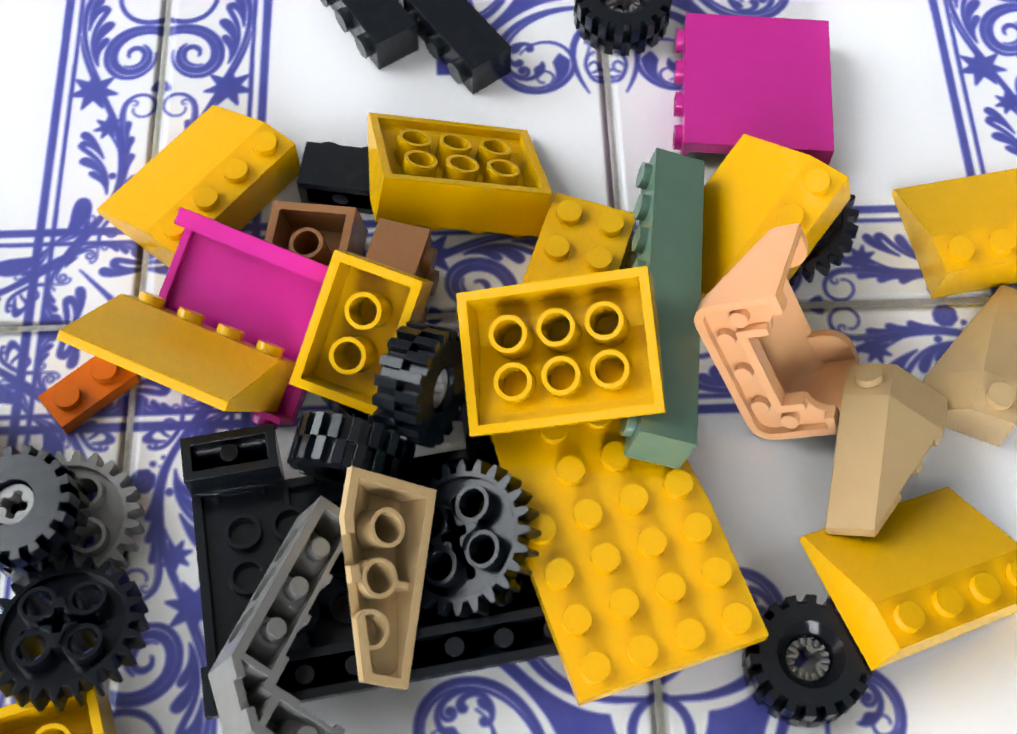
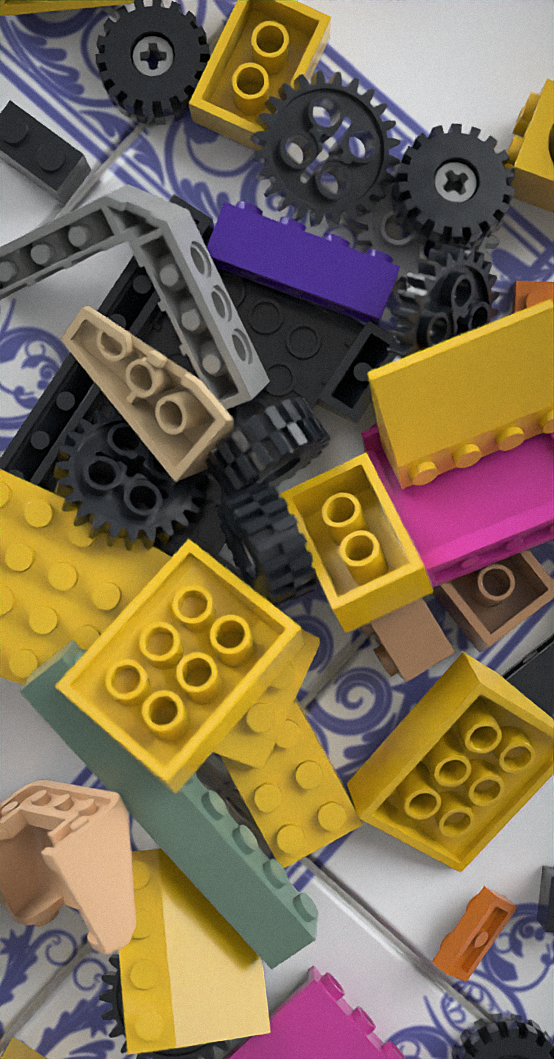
camera: 135 degrees right, 25 degrees up
(135, 431) = (443, 300): none -> black gear
(178, 569) = (302, 263): none -> dark purple brick
(573, 89) = (474, 934): none -> orange plate

